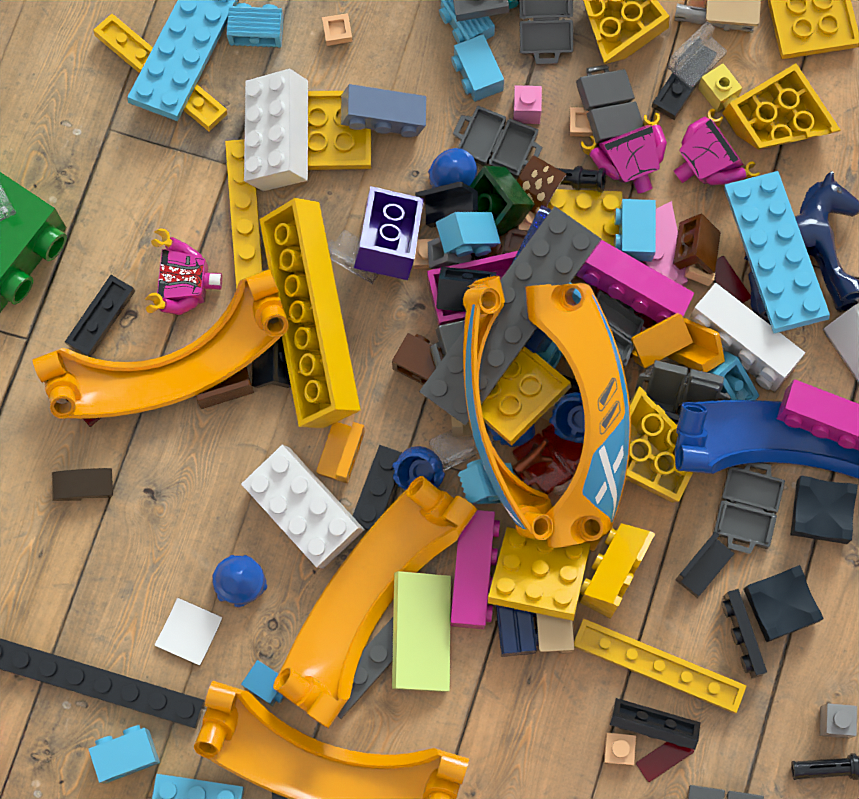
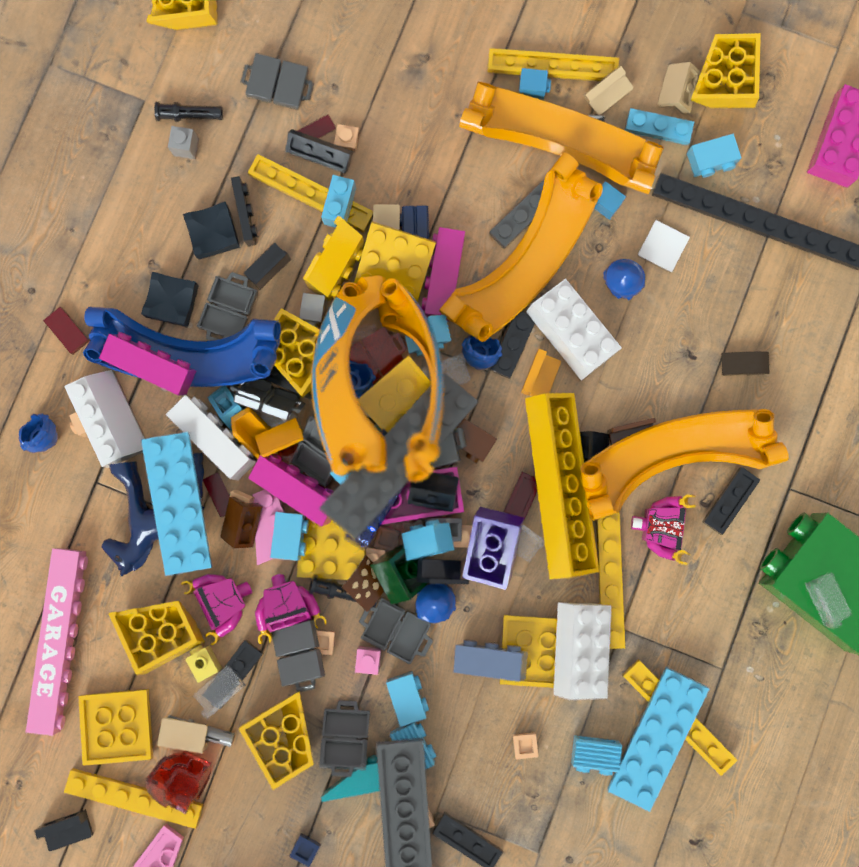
camera: 175 degrees left, 10 degrees up
(357, 303) = (522, 496): none -> dark red tile
(421, 632) = (487, 229): yellowish green tile -> none
(532, 457) = (391, 354): copper bar -> none
(620, 646) = (338, 200): none -> medium azure brick
(639, 508) = (313, 309): none -> light grey brick

